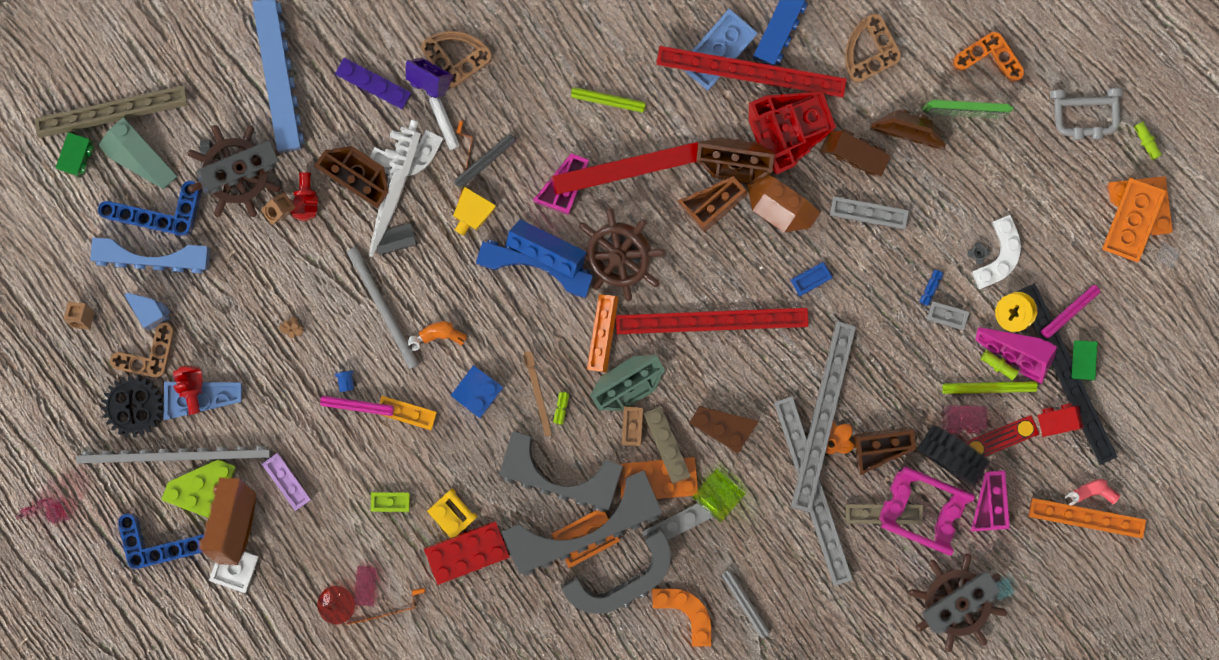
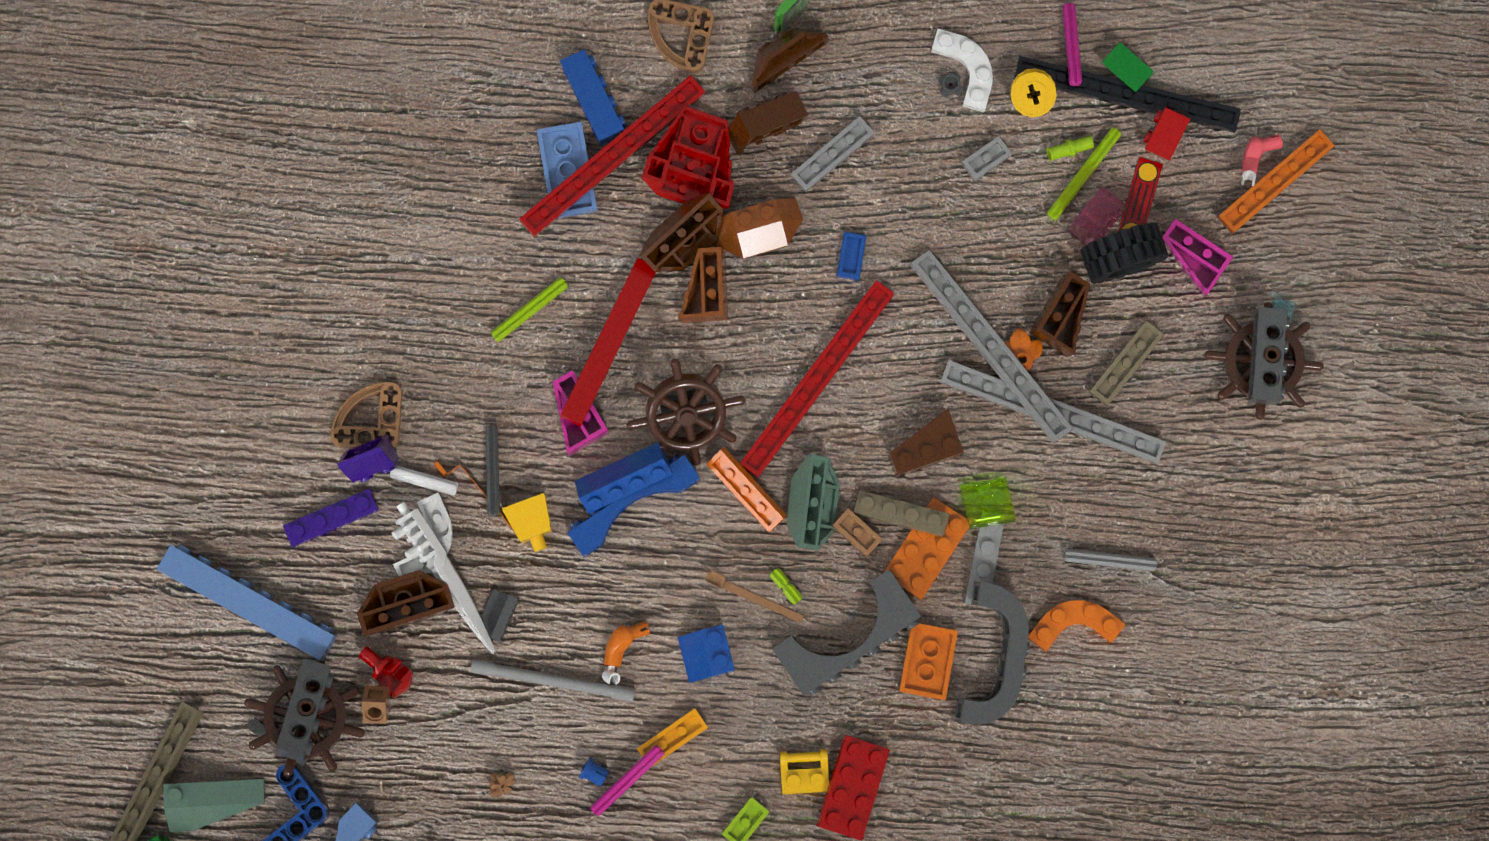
camera: 55 degrees left, 5 degrees down
(534, 551) = (938, 588): dark grey arch -> none
(931, 287) = (948, 152): blue axle -> none
(950, 511) = (1172, 303): dark pink piece -> none
(1026, 352) = (1078, 114): dark pink wedge -> none

